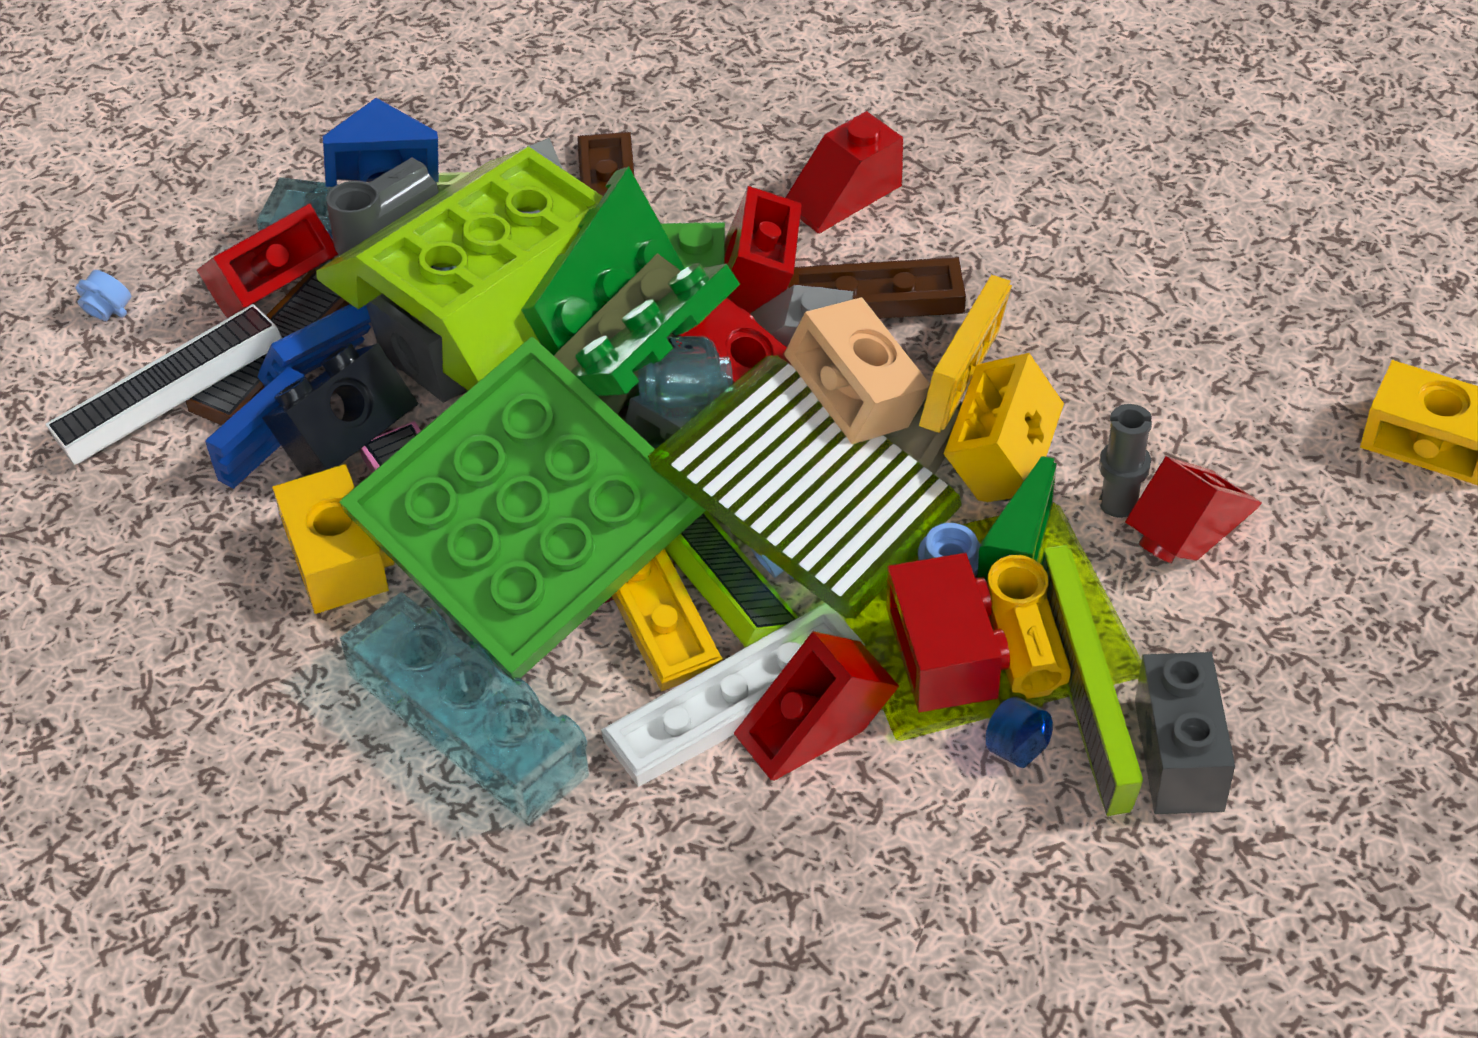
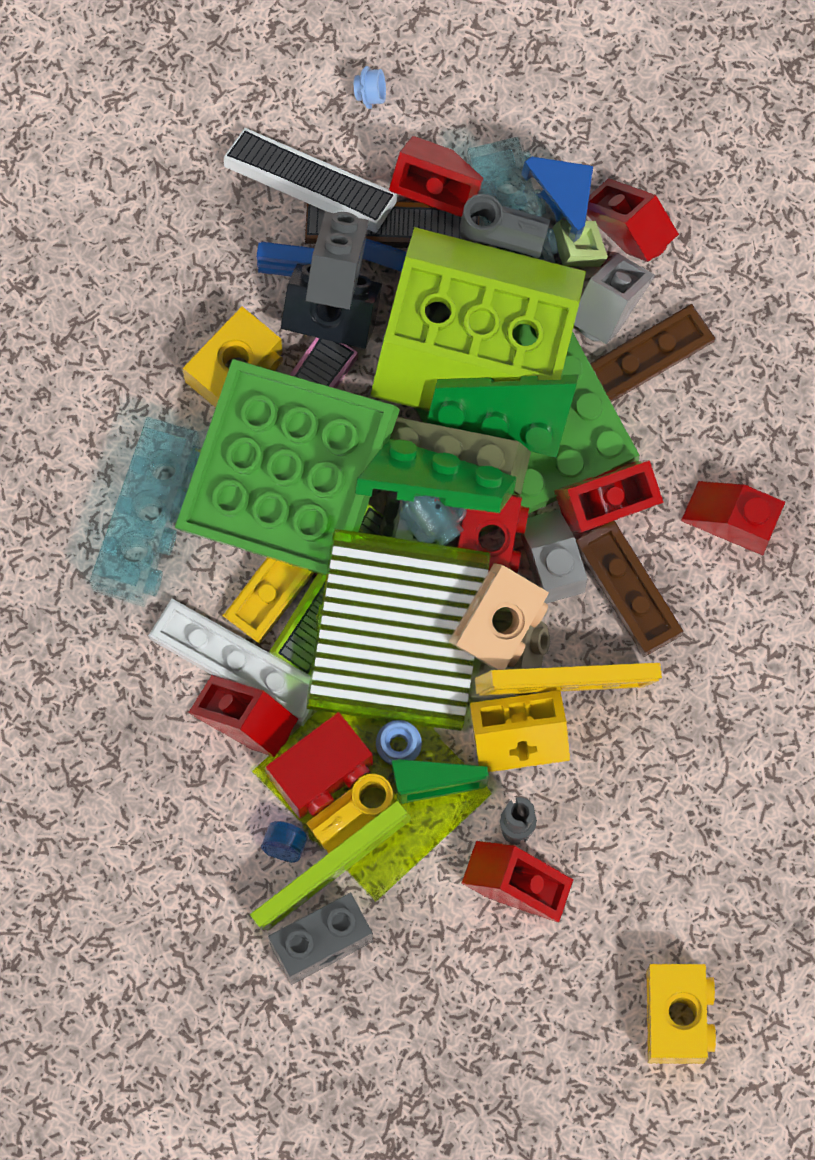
camera: 60 degrees right, 25 degrees up
(301, 333) = (337, 259): none -> dark grey brick
(466, 127) = (631, 219): none -> red slope

